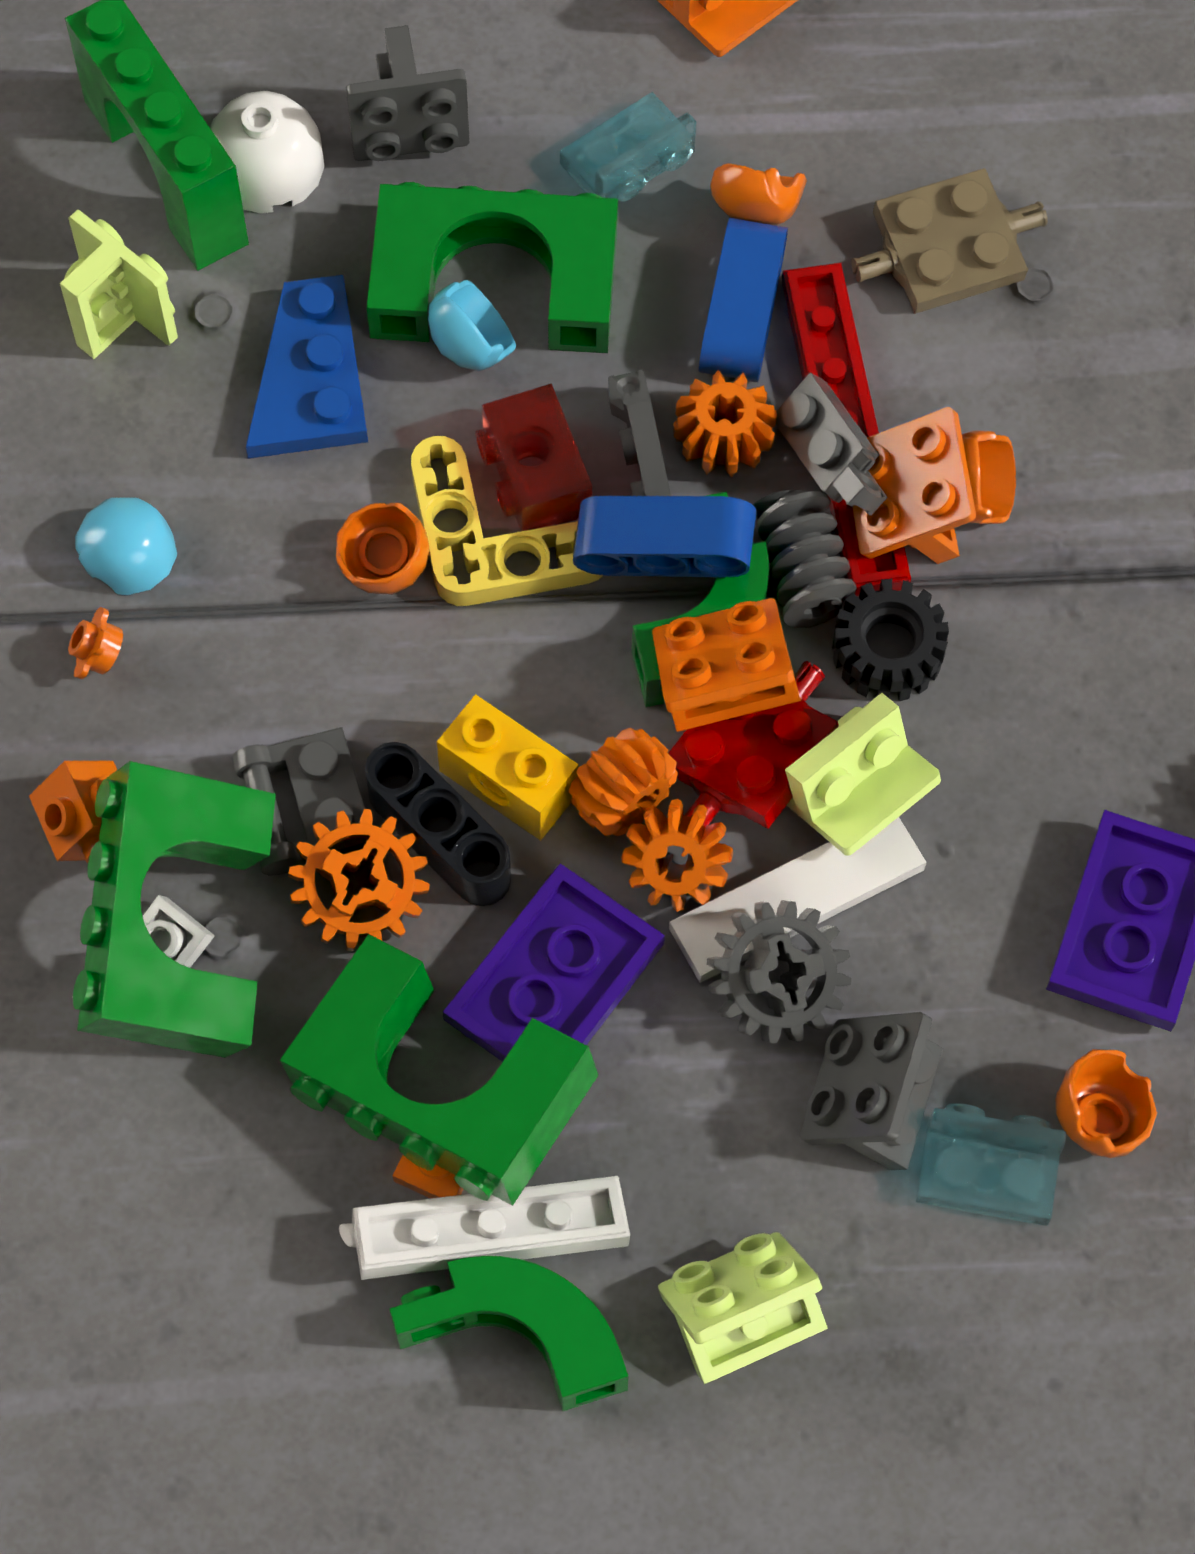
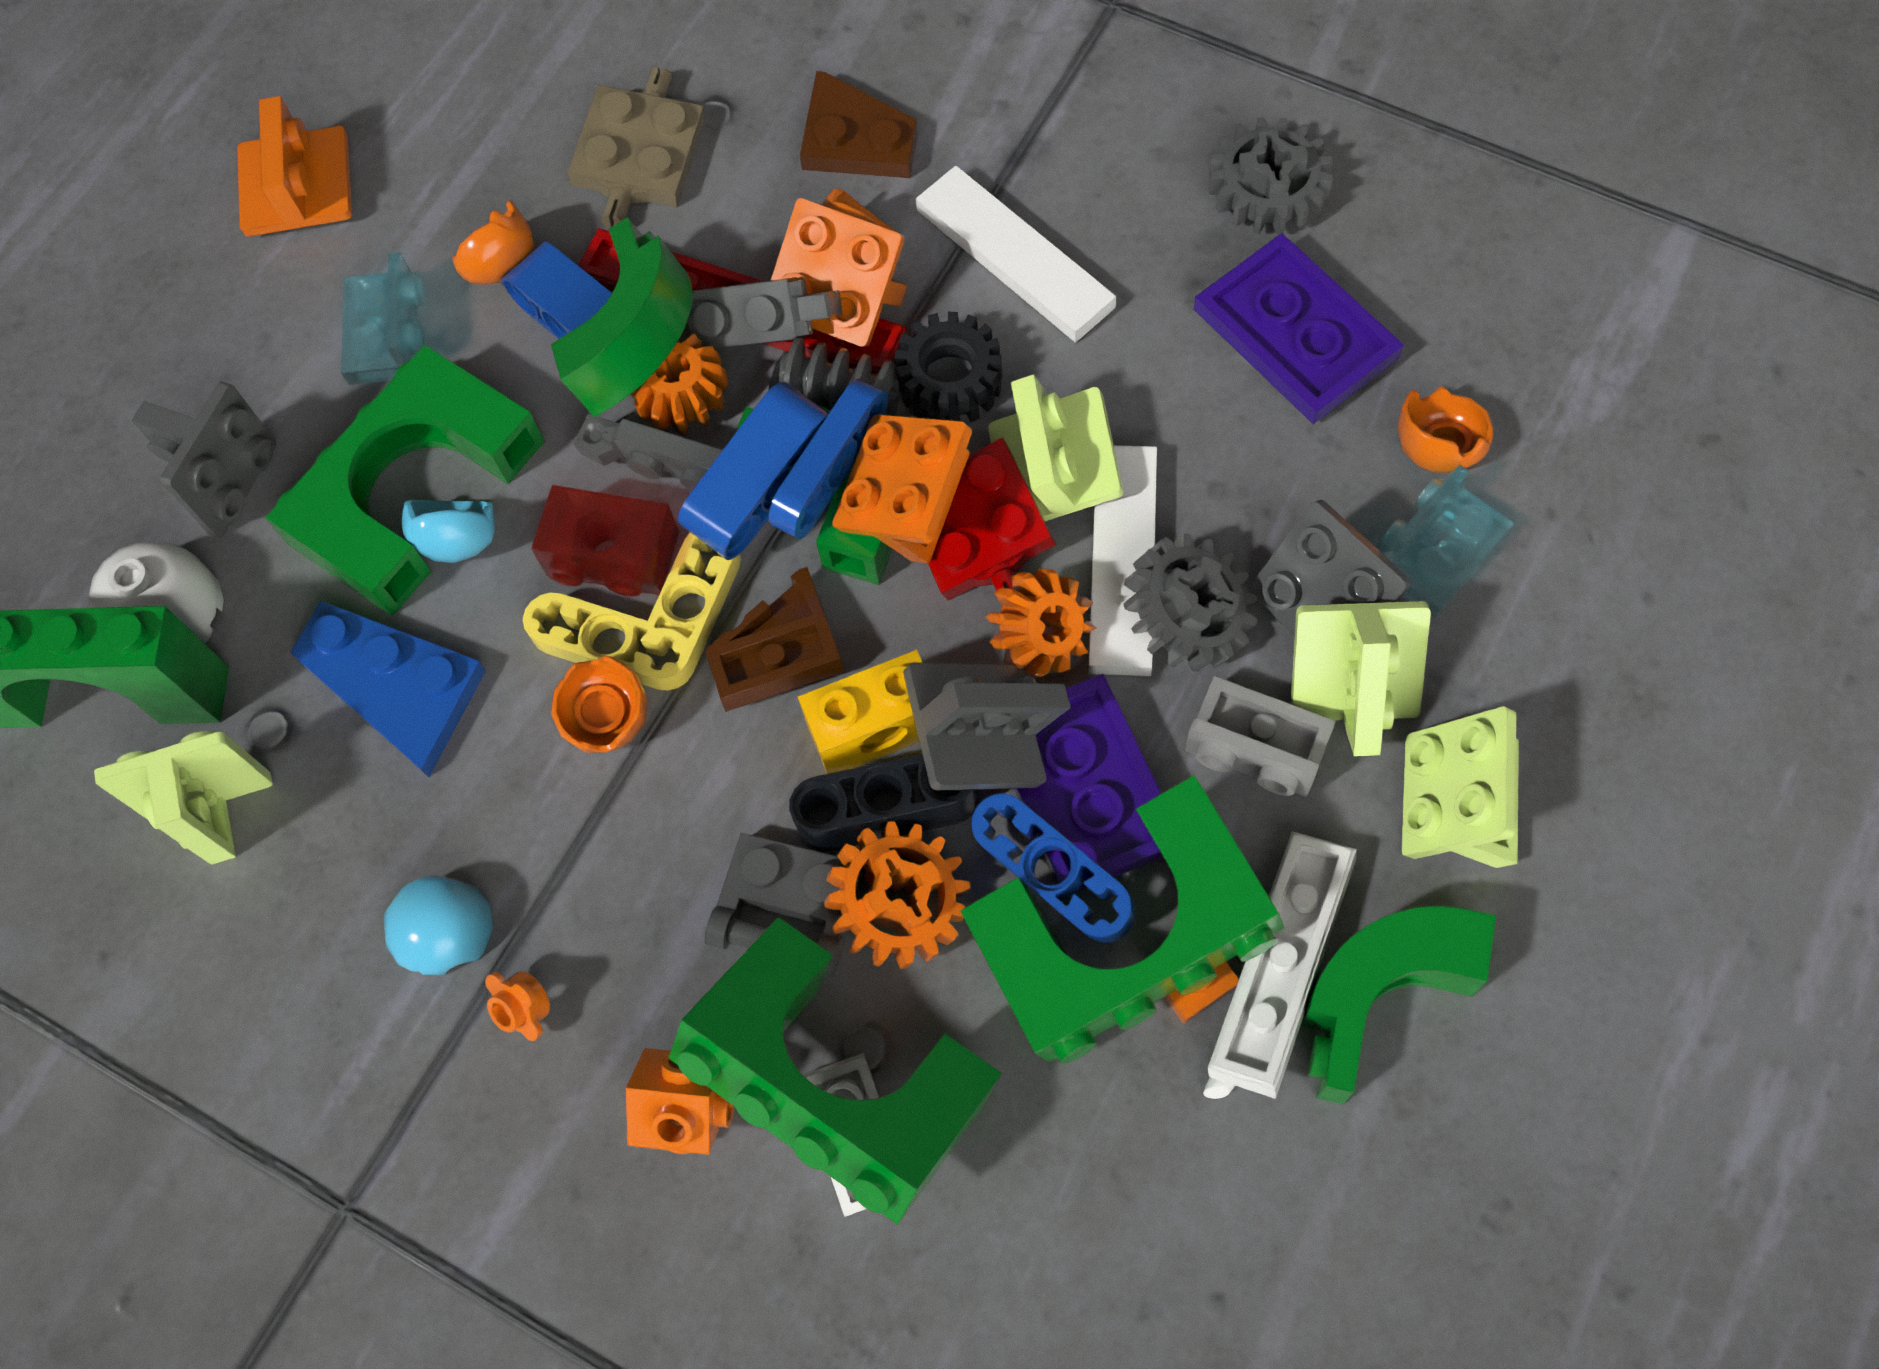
camera: 50 degrees left, 0 degrees up
(462, 1015) = (1028, 823): none -> blue beam
(526, 655) = (775, 647): none -> reddish brown wing
(537, 852) = (981, 723): none -> dark grey bracket
(623, 781) = (948, 621): orange gear -> none
(689, 1100) = (1259, 738): none -> light grey bracket
(707, 585) = (826, 460): none -> blue beam
(741, 354) = (633, 329): none -> green arch
(800, 1148) = (1361, 665): none -> yellowish green bracket
(1056, 630) = (1016, 253): none -> white tile
(1094, 416) = (856, 132): none -> reddish brown wing

